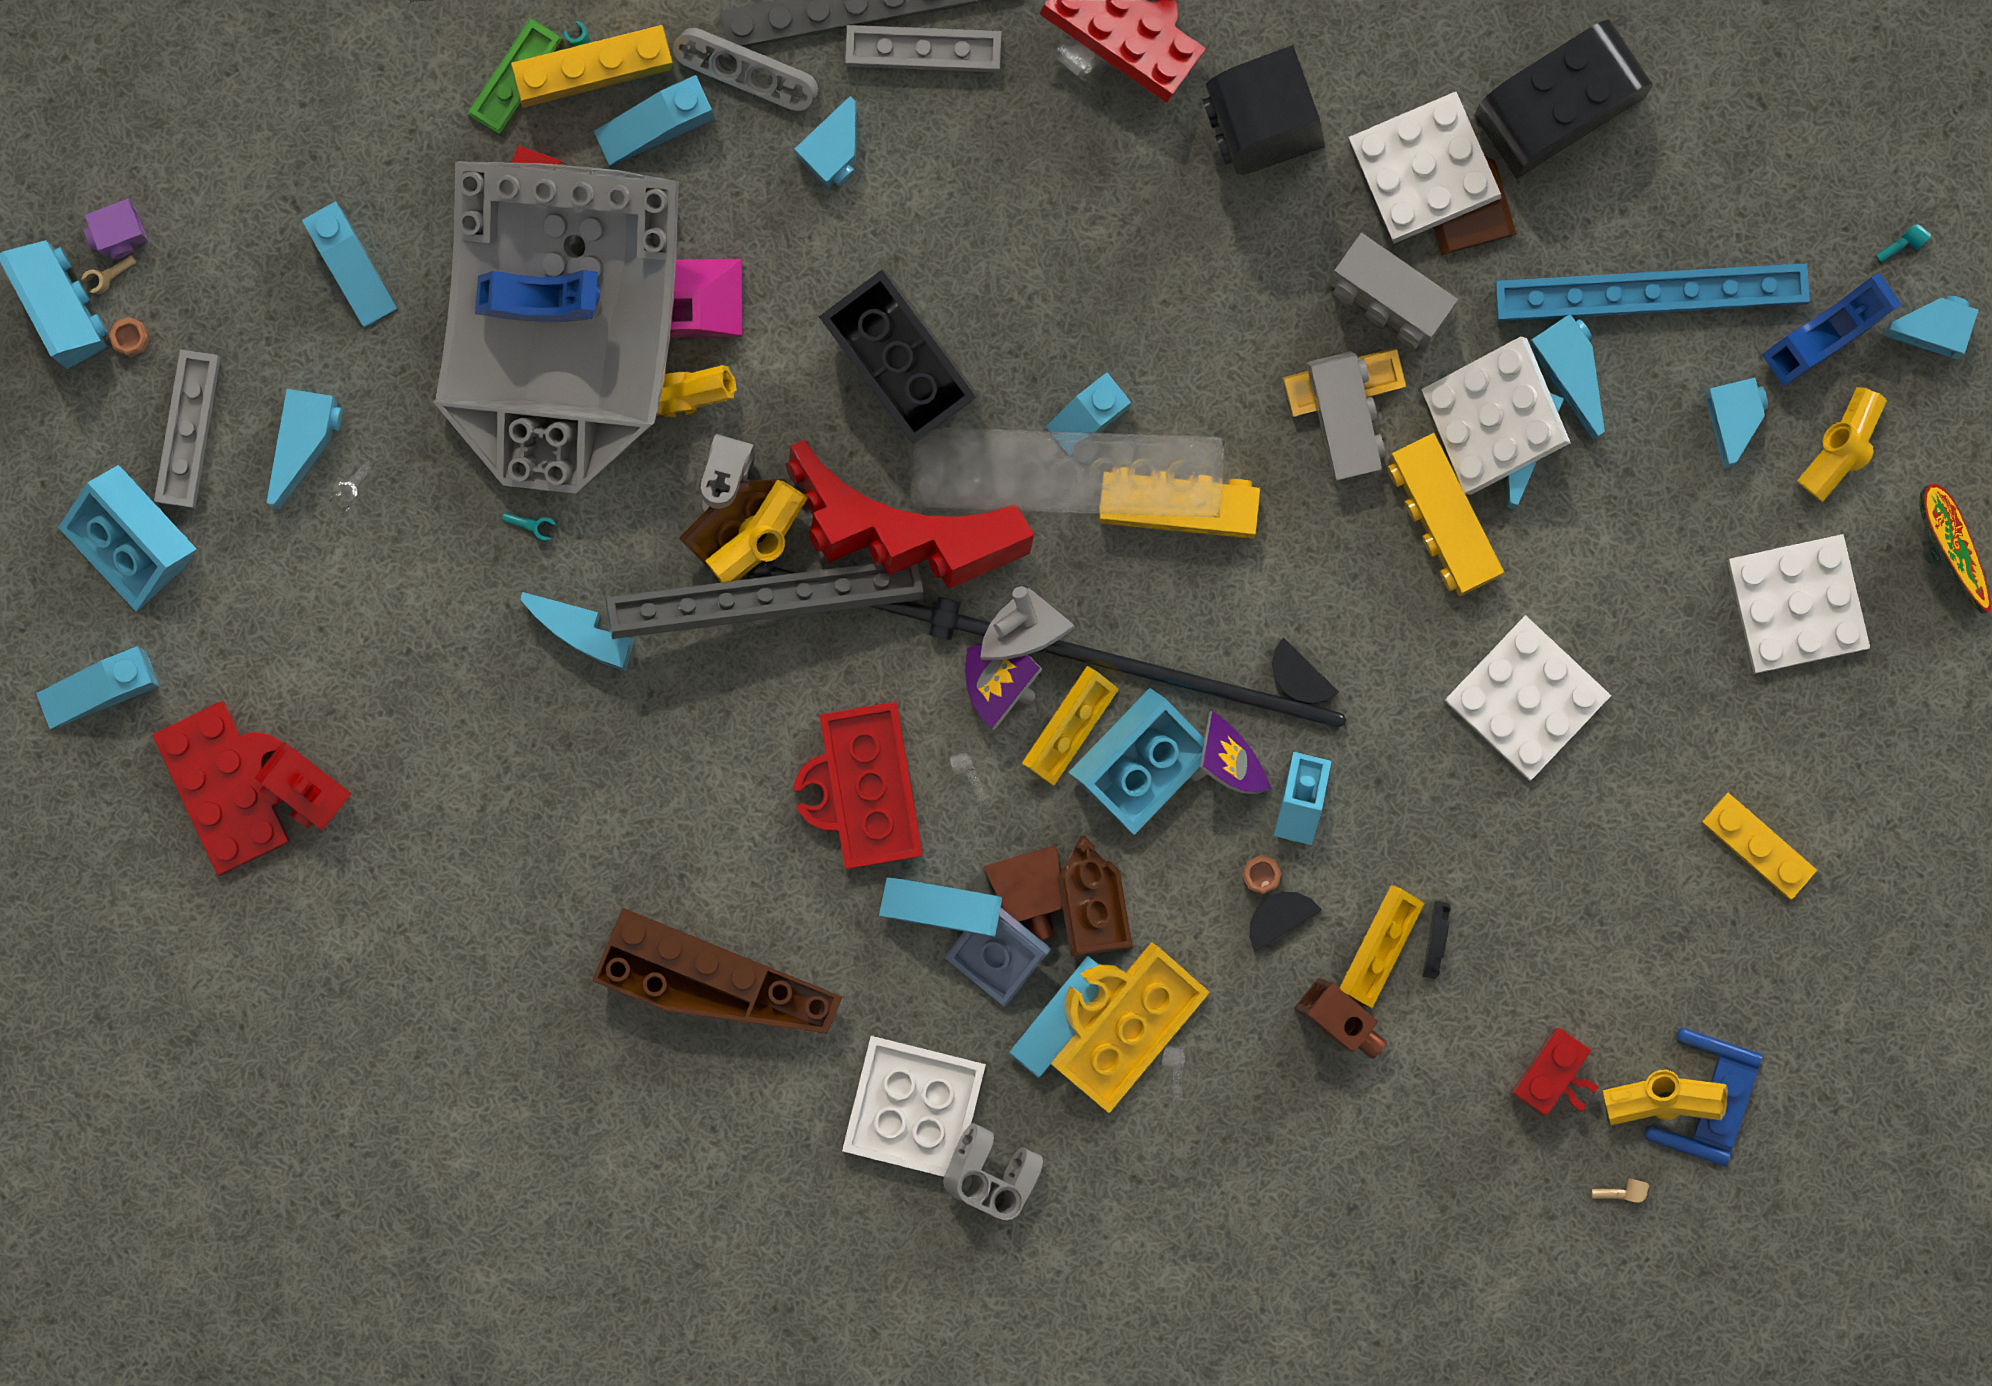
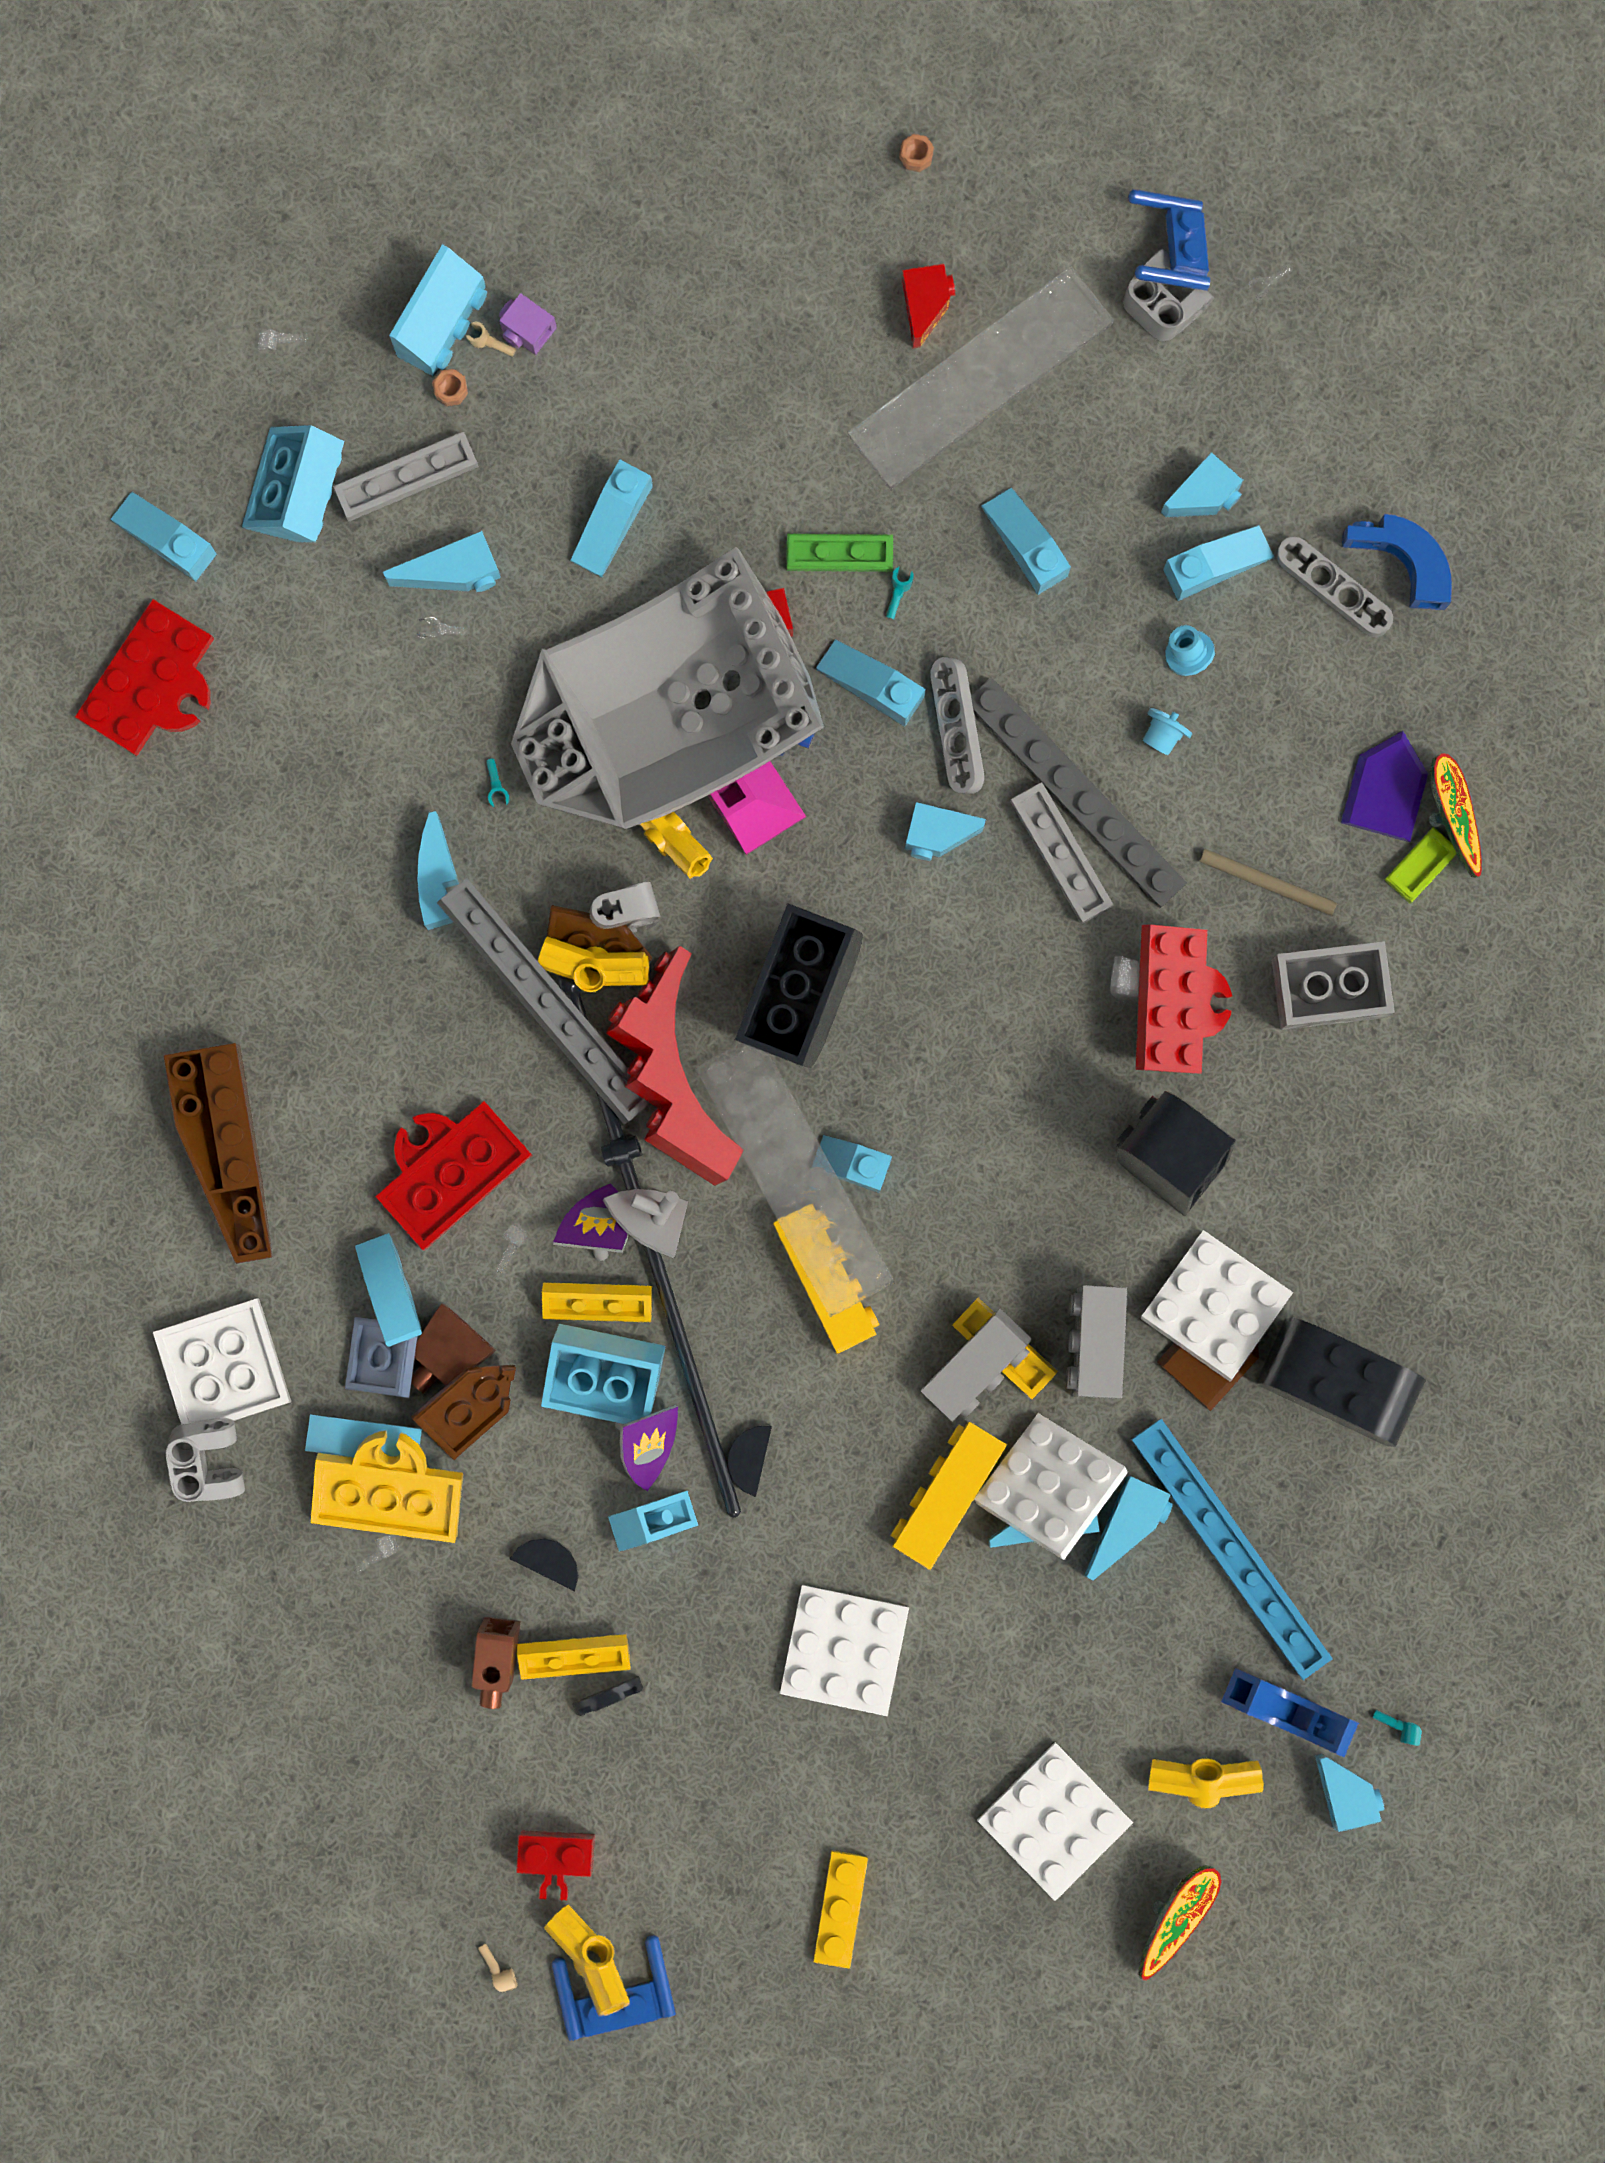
camera: 50 degrees right, 0 degrees up
(302, 786) = (180, 737): red brick -> none
(538, 298) = (671, 676): blue arch -> none
(592, 66) = (882, 605): yellow brick -> none
(1261, 874) = (573, 1526): nougat tile -> none
(1735, 416) = (1173, 1678): medium azure slope -> none

